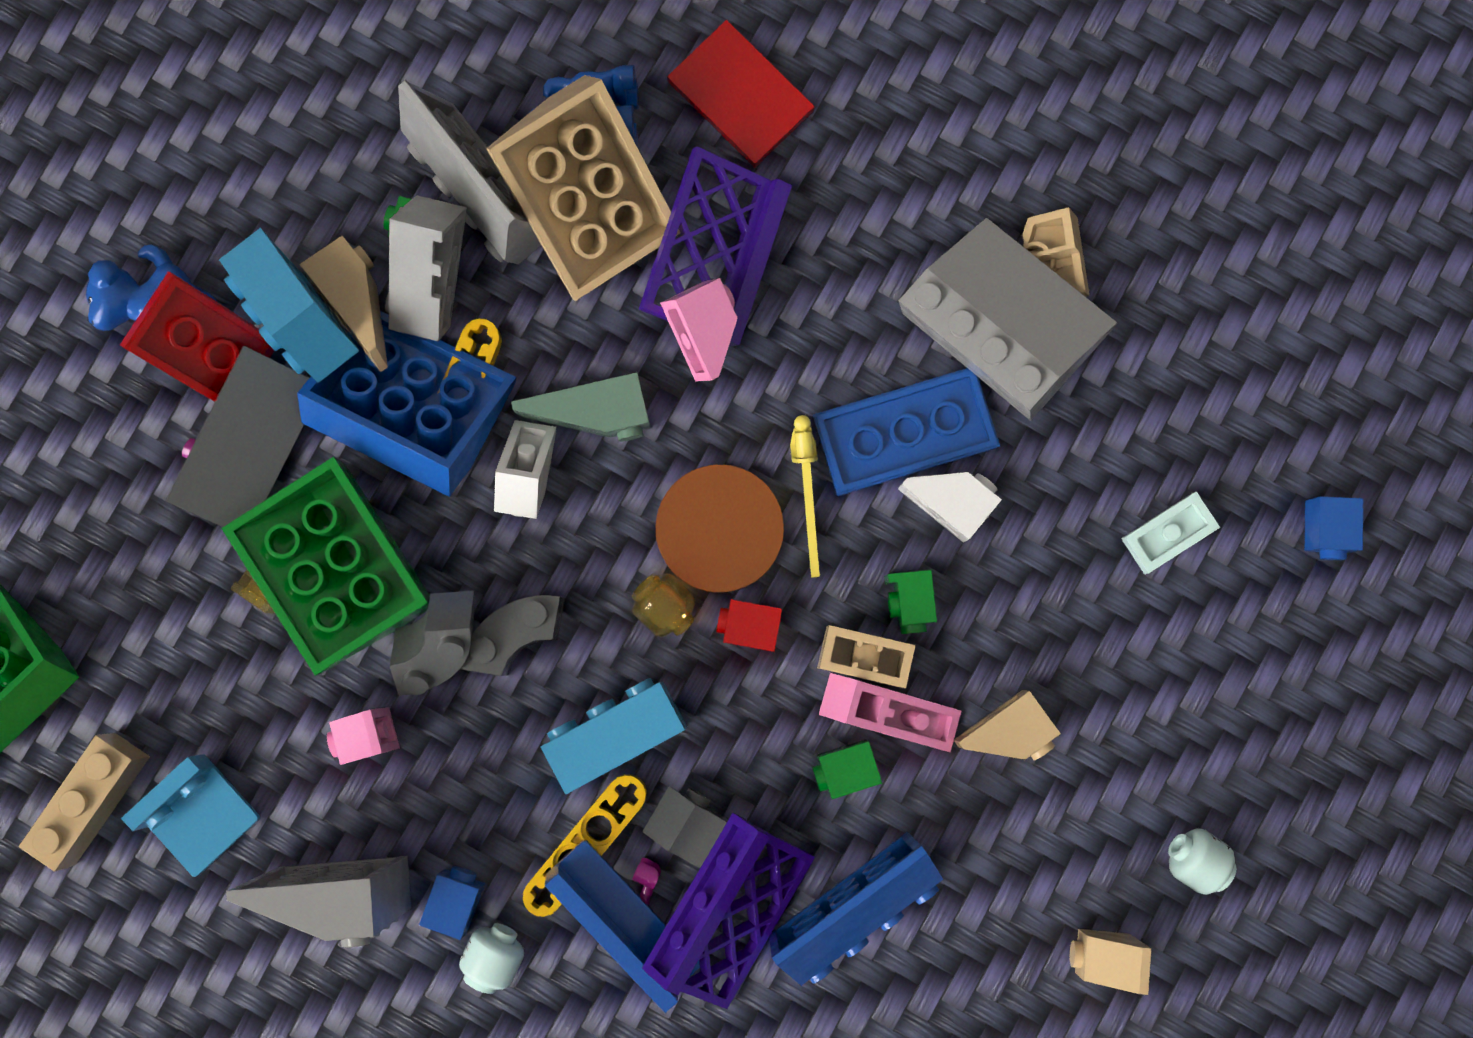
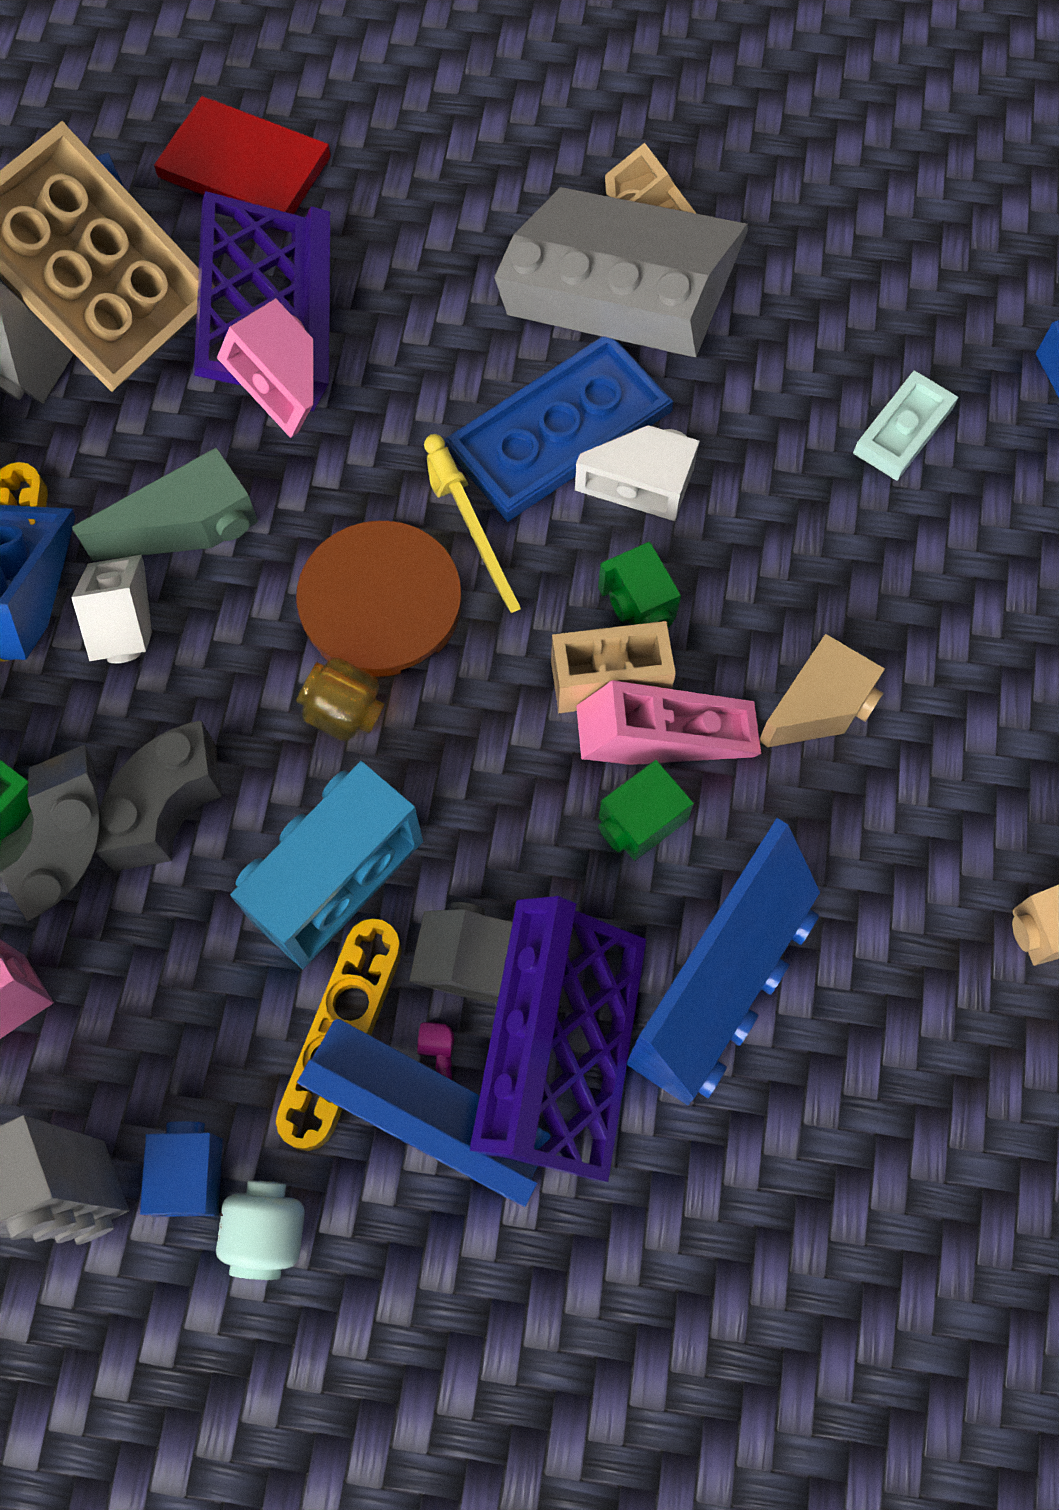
camera: 20 degrees left, 15 degrees down
(749, 625) = (457, 686): red brick -> none

